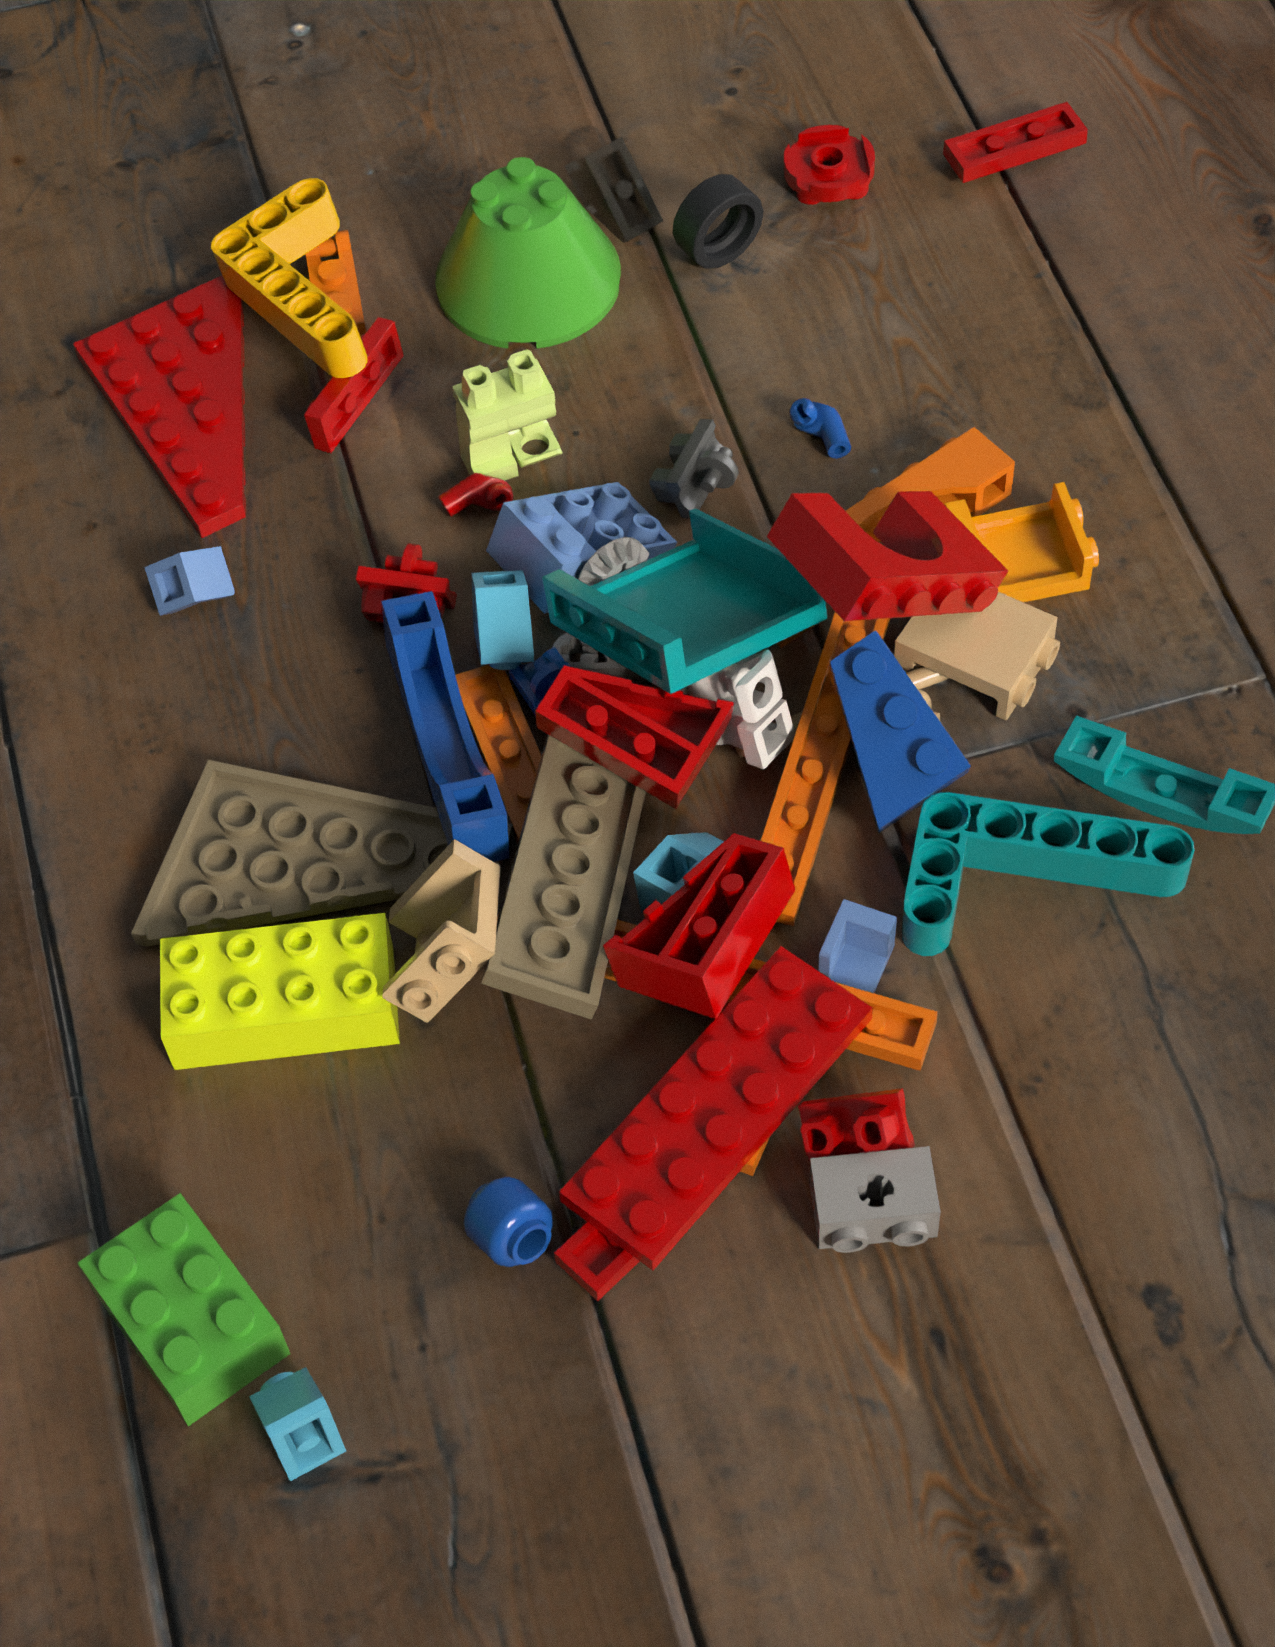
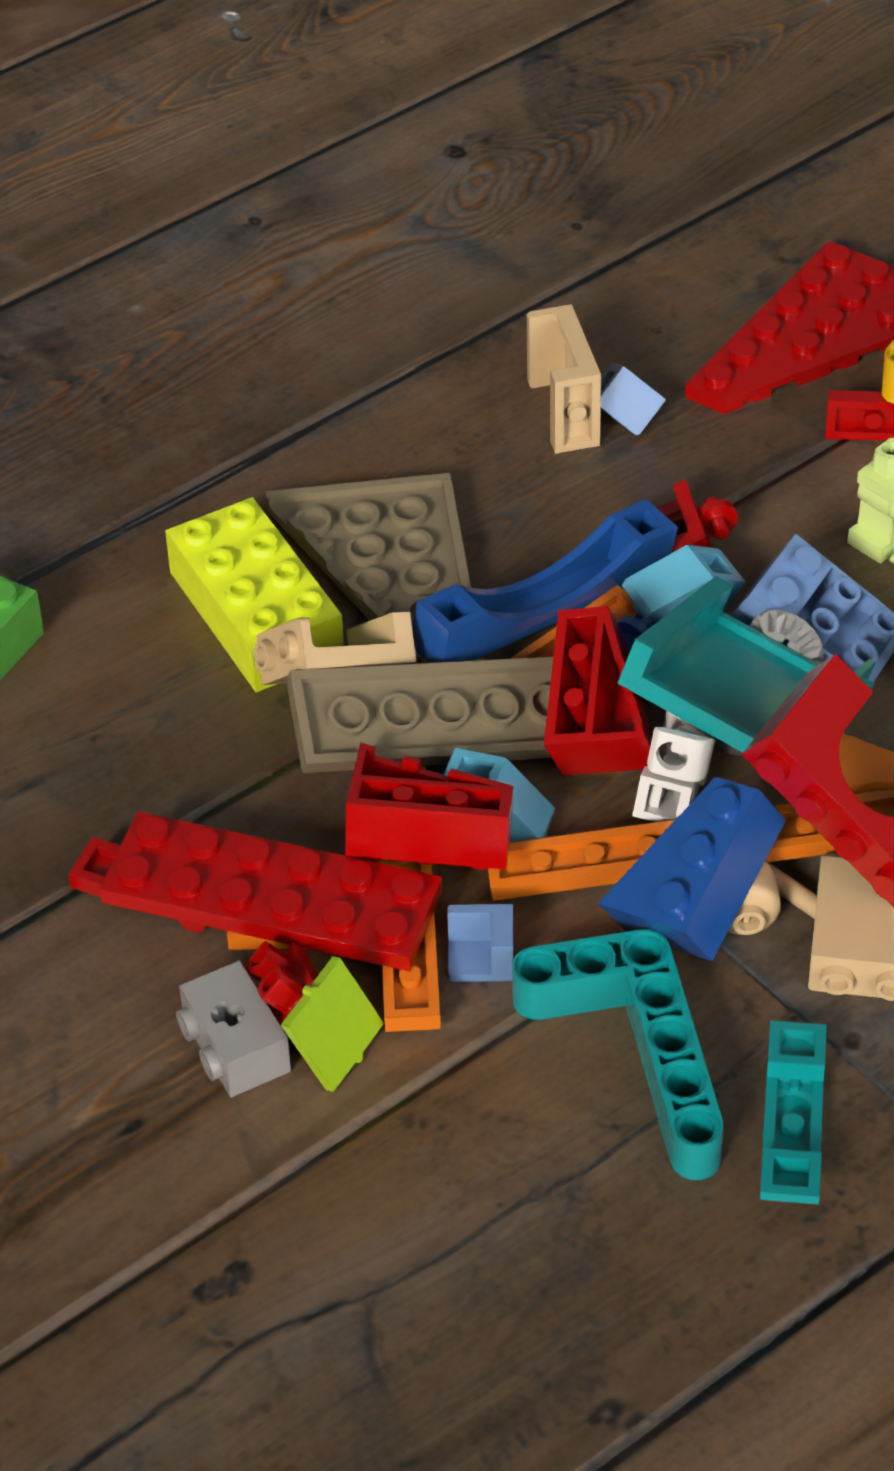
camera: 65 degrees right, 10 degrees down
(149, 603) = (562, 358): none -> tan panel
(476, 490) = (835, 535): red arm -> none
(508, 1222) = (109, 801): blue head -> none
(925, 1101) = (332, 1024): none -> lime piece

